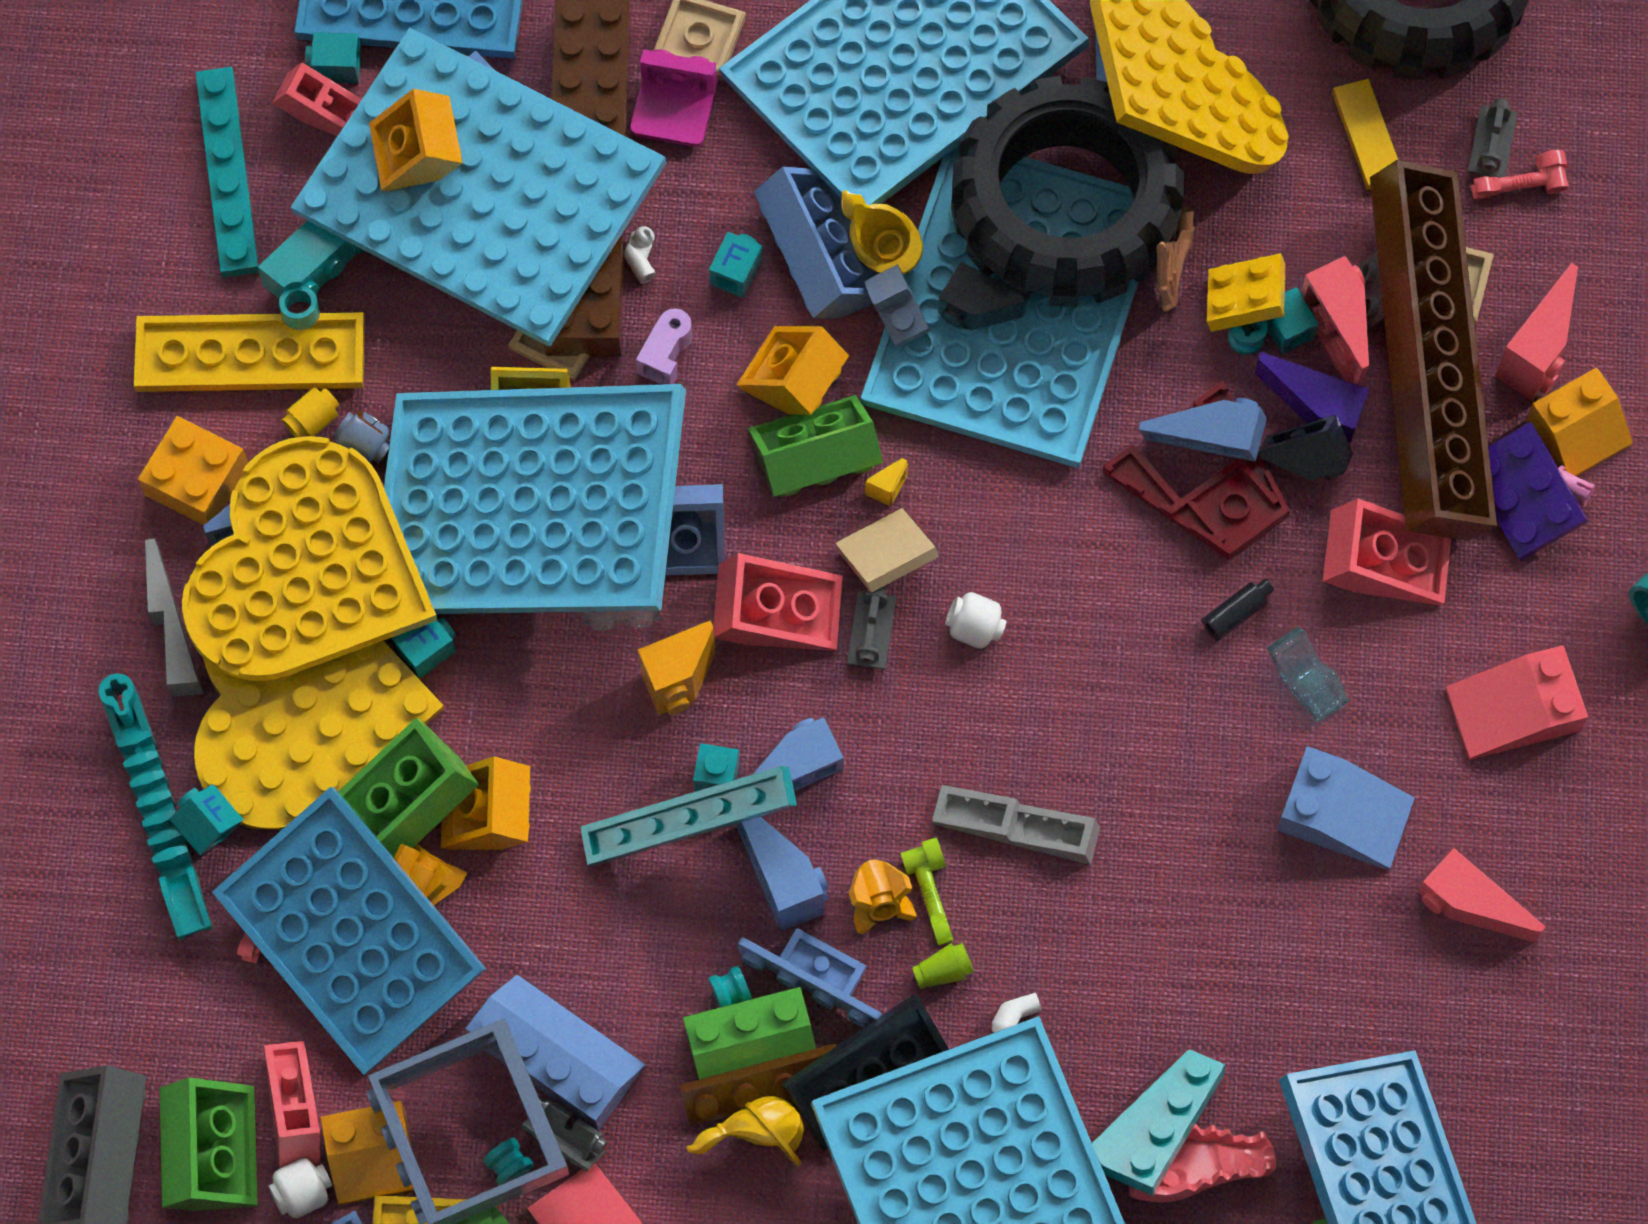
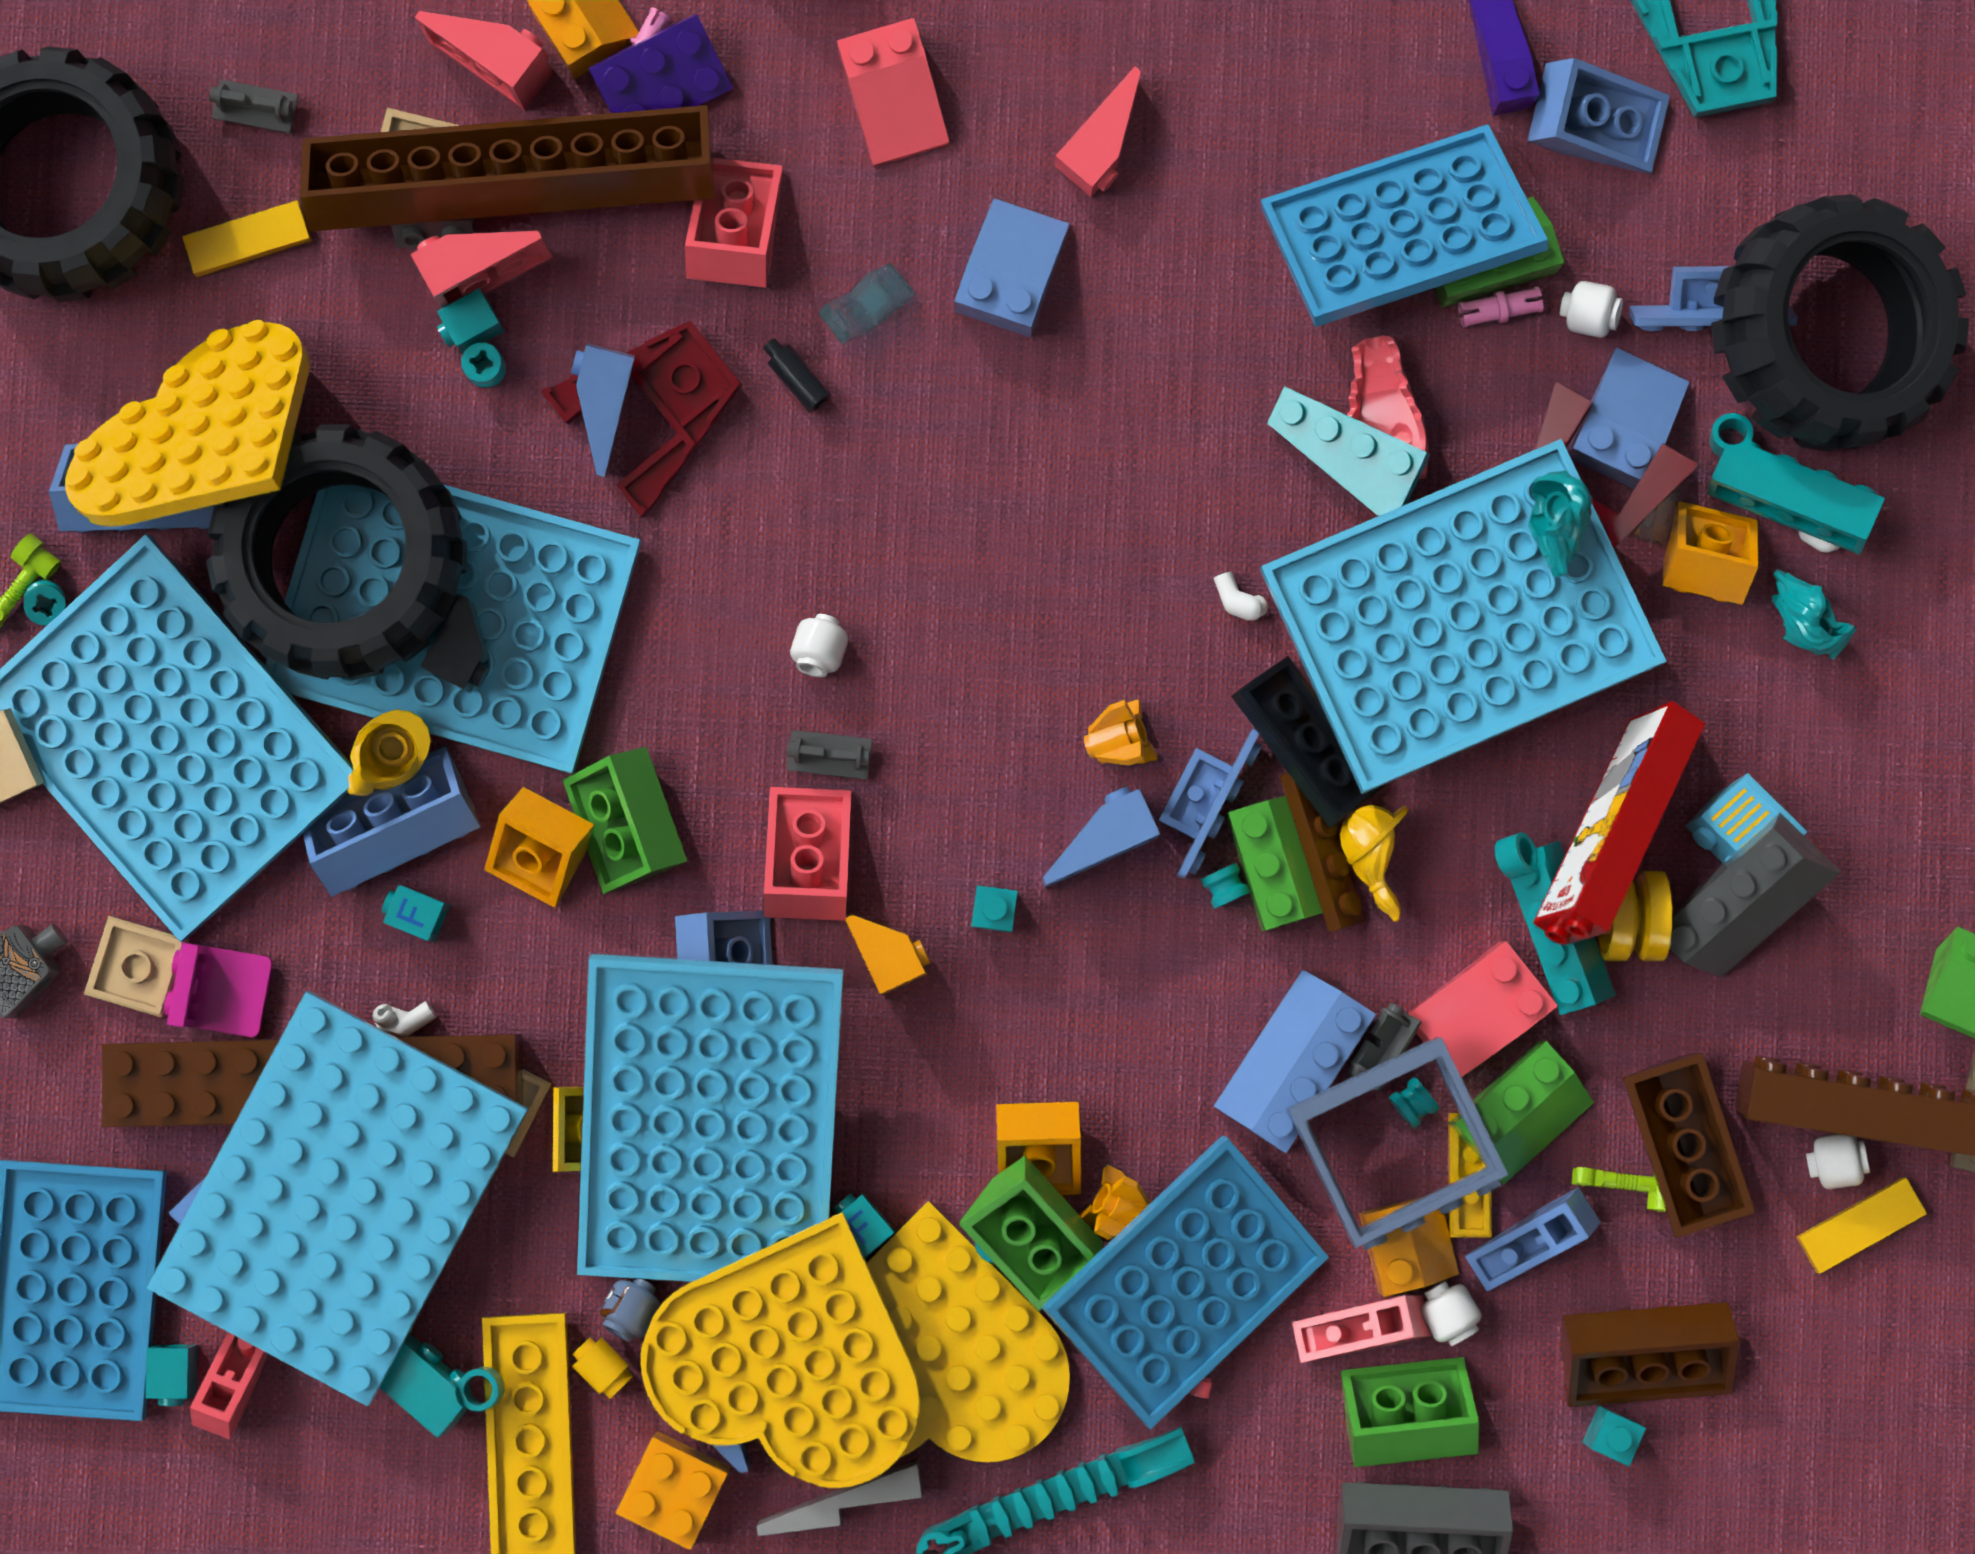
camera: 90 degrees left, 15 degrees up
(205, 818) = (1066, 1443): teal brick -> none
(227, 172) = (310, 1483): teal plate -> none
(415, 140) = (295, 1270): light orange slope -> none
(667, 339) = (500, 981): lavender leg -> none
(688, 815) = (1058, 931): teal plate -> none
(808, 752) = (978, 826): medium blue slope -> none
(886, 550) = (744, 739): tan tile -> none
(887, 483) = (669, 741): yellow slope -> none
(897, 306) = (467, 736): sand blue slope -> none
(923, 862) = (1081, 694): lime brick -> none
(944, 967) = (1192, 669): lime cone -> none
(1017, 824) = (1035, 601): light grey slope -> none
(1171, 260) = (411, 440): nougat animal -> none
(1246, 292) = (443, 364): yellow plate -> none
(1310, 449) = (620, 300): black slope -> none
(1313, 393) = (560, 291): dark purple slope -> none
(1550, 173) = (293, 46): coral brick -> none

